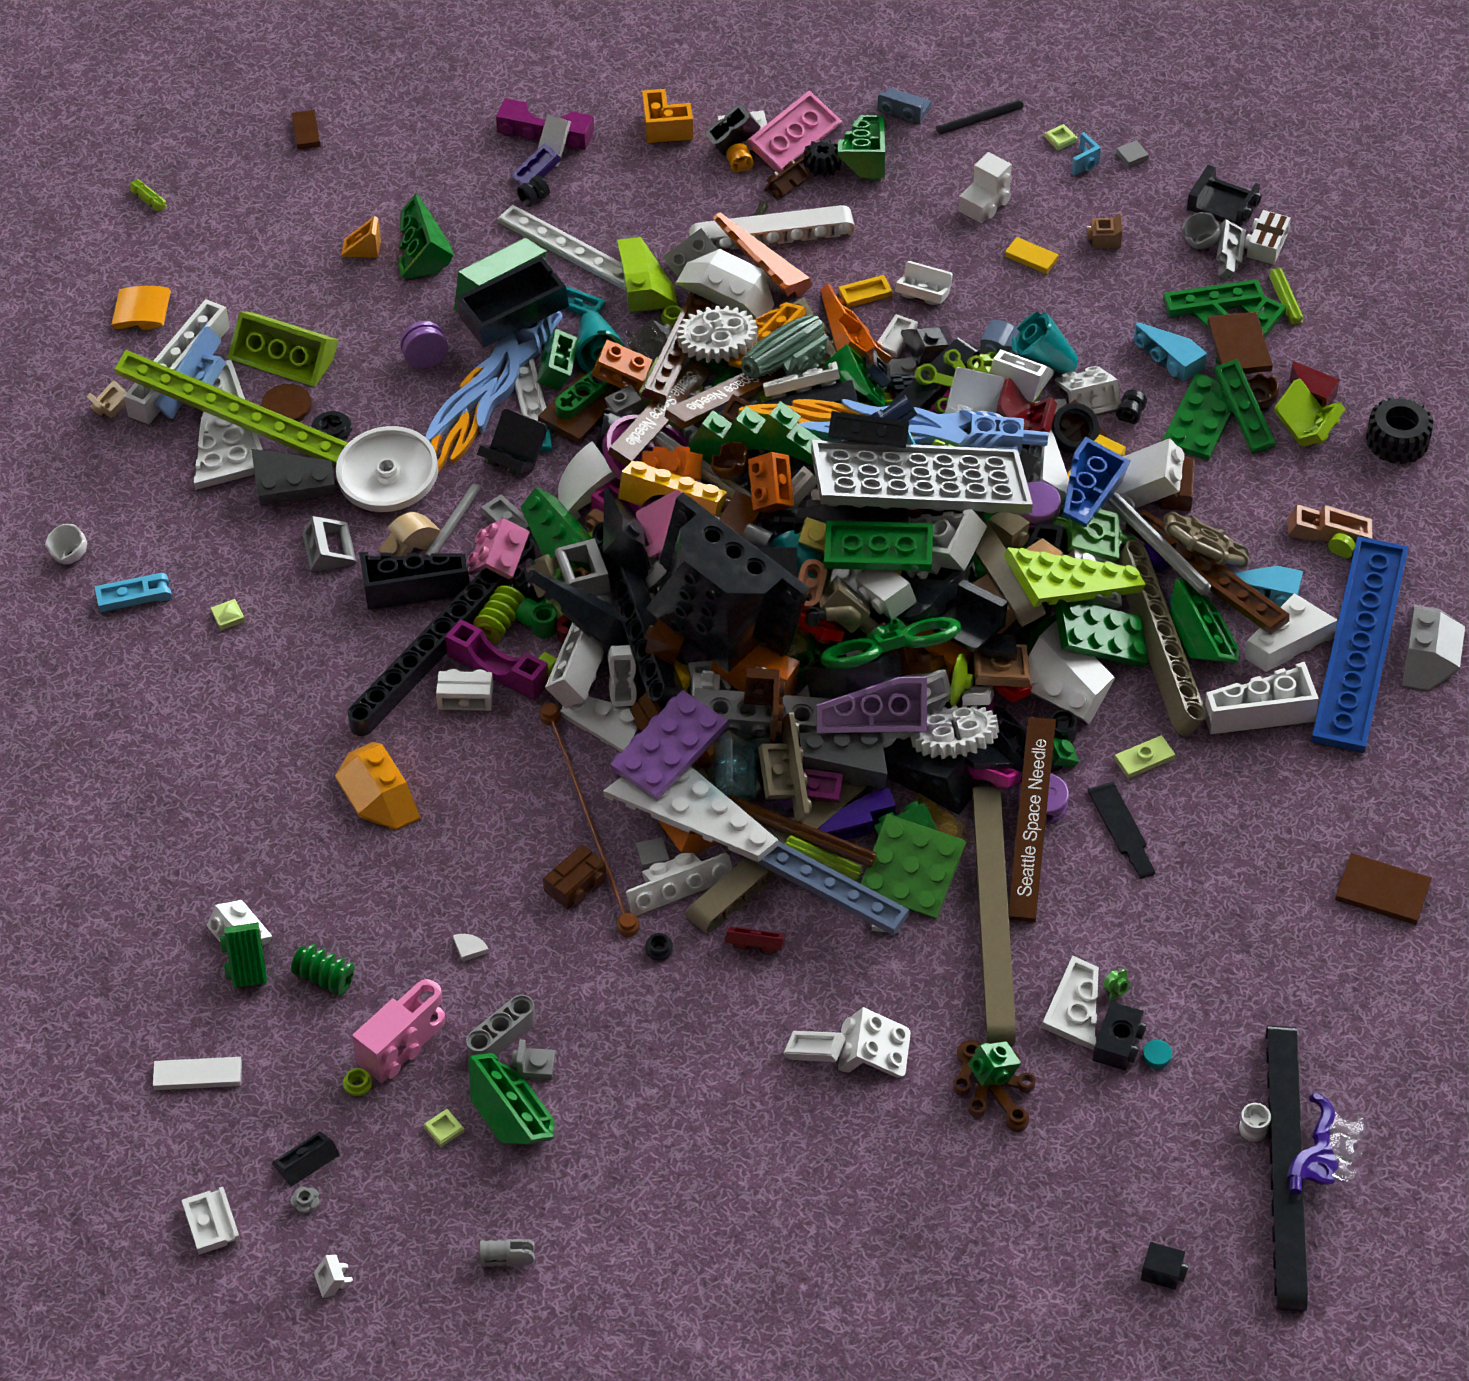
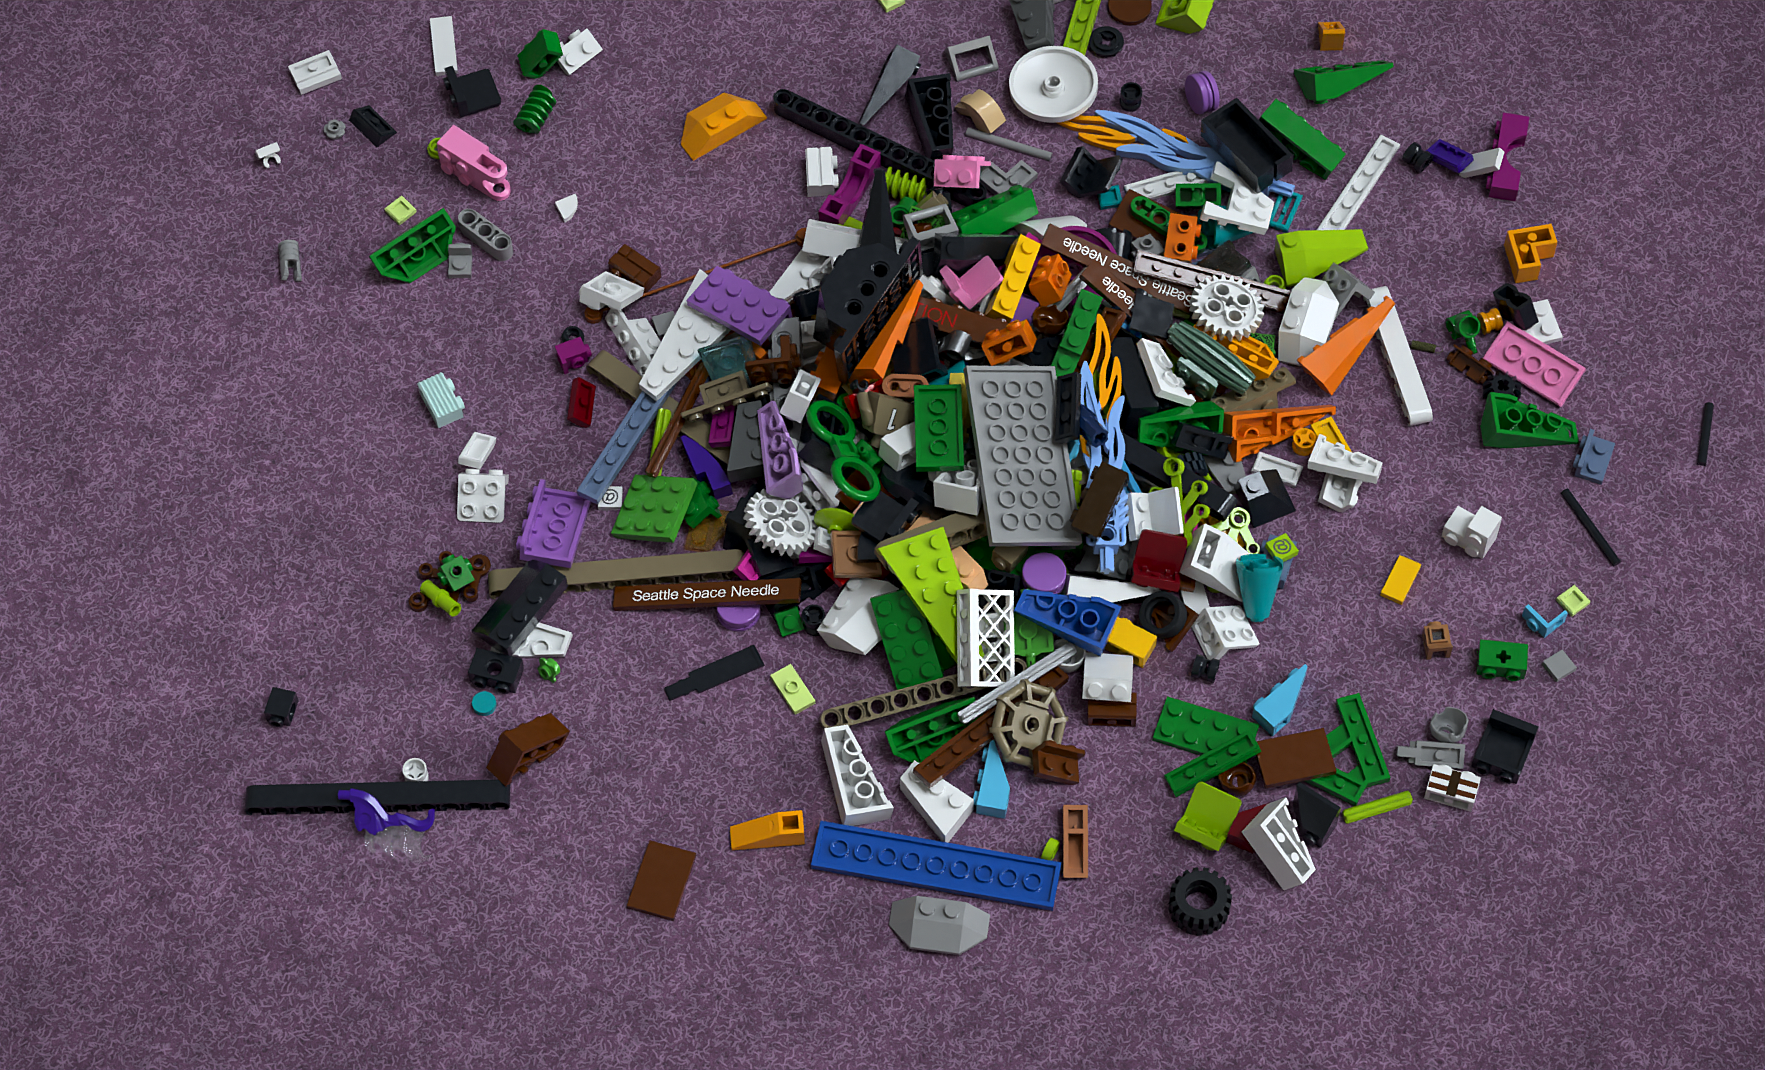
camera: 85 degrees right, 10 degrees up
(278, 1040) = (471, 91): none -> black bracket
(350, 609) = (895, 72): none -> wedge
(413, 408) = (1130, 96): none -> black wheel
(582, 312) = (1245, 206): none -> white wing
(611, 895) = (610, 291): none -> white plate
(688, 944) = (572, 354): none -> magenta brick
(729, 382) = (1151, 316): none -> black piece
(737, 1084) = (440, 399): none -> light aqua brick
(744, 174) = (1465, 326): none -> green piece
(814, 679) = (800, 396): none -> white brick
(868, 309) = (1302, 437): none -> light orange wheel
(880, 28) = (1705, 434): none -> black bar
(906, 271) = (1338, 461): none -> white wing
(932, 964) = (552, 526): none -> medium lavender bracket
(981, 415) = (1099, 500): none -> dark brown wedge
(1003, 326) = (1282, 548): none -> lime tile
(1024, 1083) = (440, 598): none -> lime pin
(1044, 995) = (521, 606): none -> black slope
(1119, 555) = (969, 637): none -> white fence
(1128, 188) = (1513, 656): none -> green brick
(1231, 998) = (525, 745): none -> reddish brown wedge
(1246, 529) = (1057, 762): none -> reddish brown bracket
(1305, 333) = (1314, 815): none -> black slope
(1327, 779) = (769, 831): none -> light orange slope
(1341, 357) = (1278, 845): none -> white wedge

